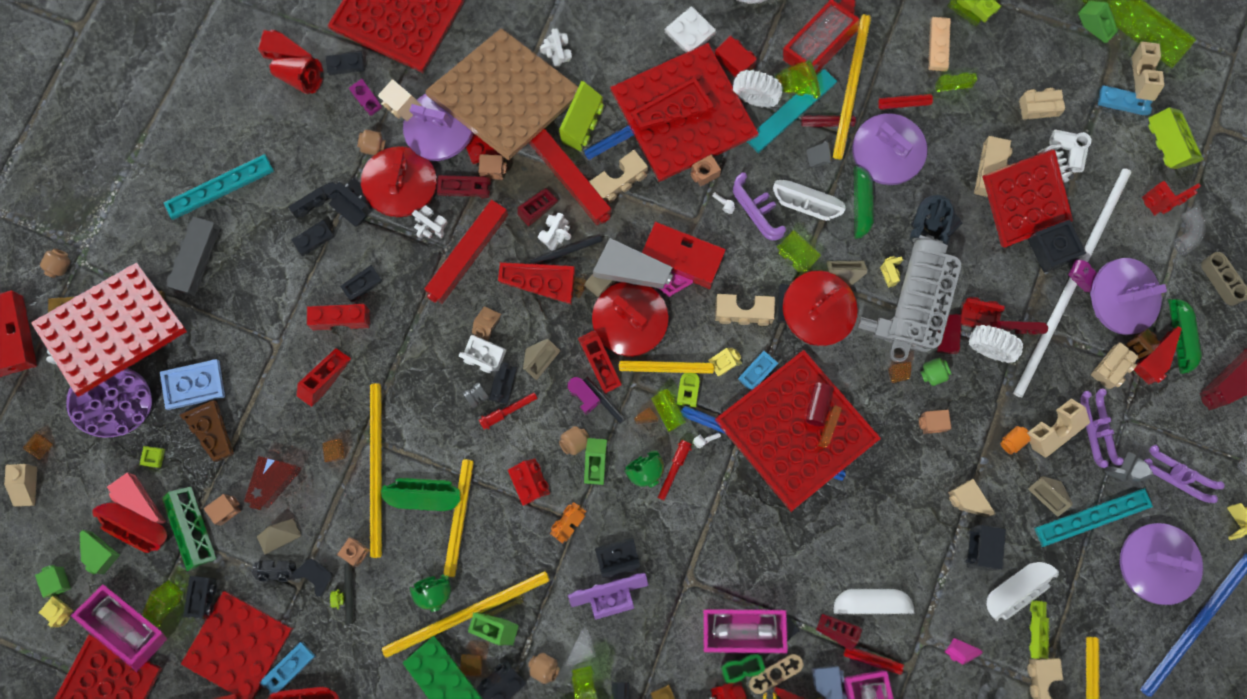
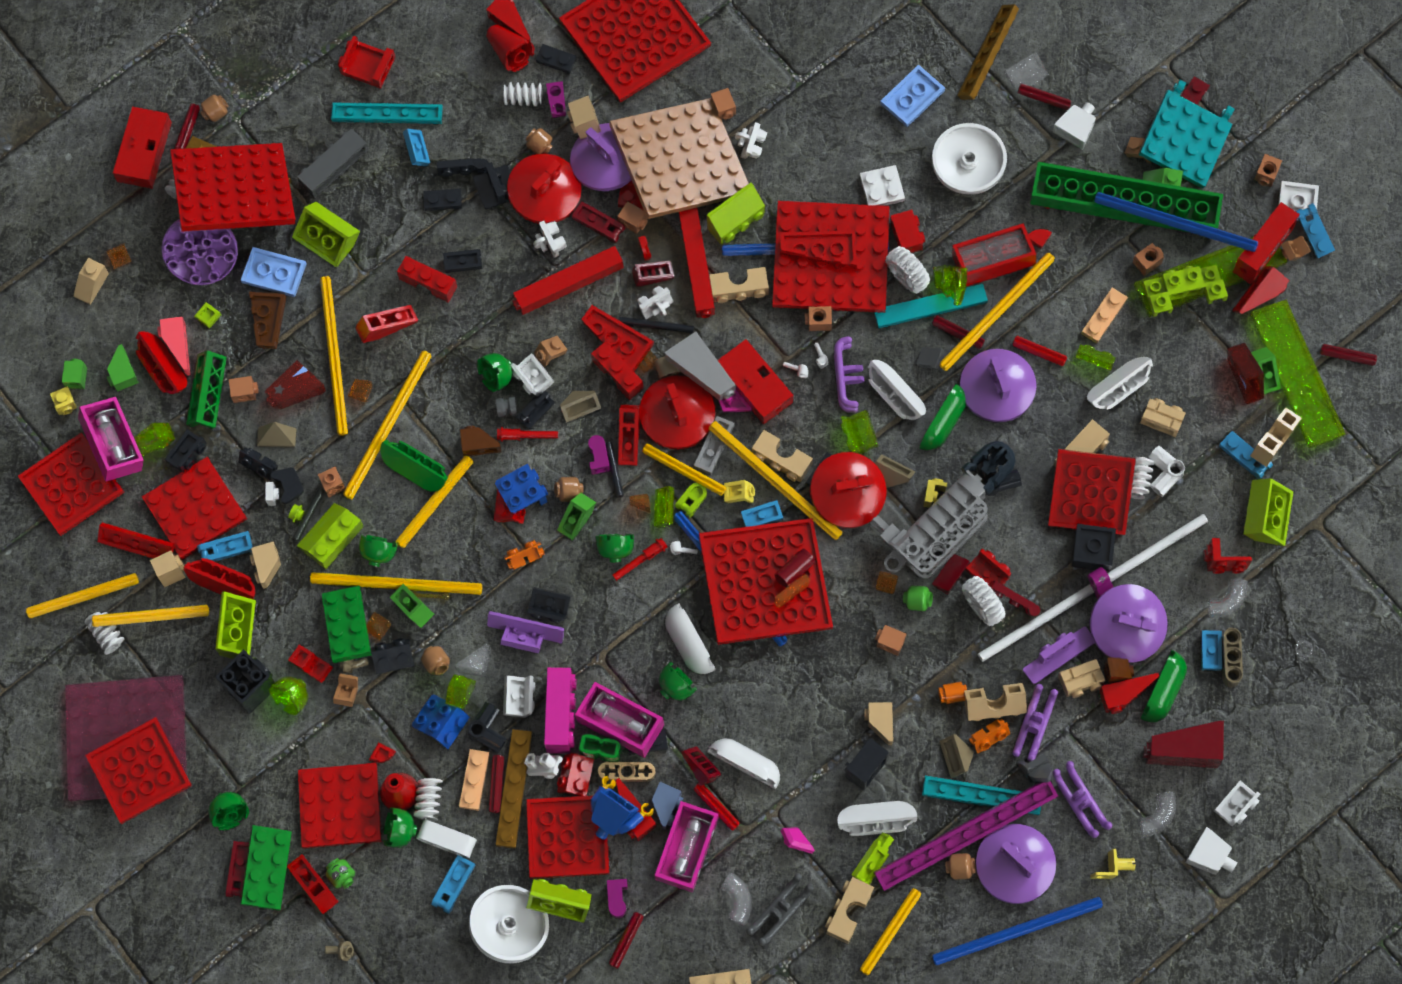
camera: 30 degrees right, 5 degrees down
(39, 292) = (188, 126): none -> dark red axle
(175, 151) = (366, 62): none -> red panel
(221, 324) = (325, 233): none -> lime slope
(262, 203) = (416, 147): none -> dark azure plate
(291, 432) = (333, 352): none -> yellow axle
(303, 594) = (272, 493): none -> white plate
(332, 108) = (522, 94): none -> white piece
(334, 662) = (266, 562): none -> tan slope
(379, 603) = (330, 535): none -> lime slope
(448, 368) = (495, 370): none -> green cylinder
(466, 441) = (478, 442): none -> reddish brown slope
(513, 184) = (644, 247): none -> red tile
(515, 27) = (724, 103): none -> nougat brick
(532, 464) = (521, 489): none -> blue bracket
(564, 311) = (610, 362): none -> red arch
(639, 659) = (518, 696): none -> white bracket
(679, 331) = (712, 448): none -> light grey plate
(687, 657) = (559, 707): none -> dark pink piece
(716, 223) = (802, 369): none -> white hand
(750, 333) = (774, 479): none -> yellow axle
(758, 520) = (688, 641): none -> white brick
(773, 568) = (675, 683): none -> green cylinder
(989, 93) = (1120, 383): none -> white brick
(1072, 453) = (997, 732): none -> orange hinge
(1081, 356) = (1058, 654): none -> medium lavender bracket
(1086, 30) = (1246, 373): none -> clear red slope
(1105, 564) = (965, 834): none -> magenta plate
(1118, 593) = (961, 866): none -> medium nougat head
(1204, 281) = (1211, 650): none -> dark azure plate

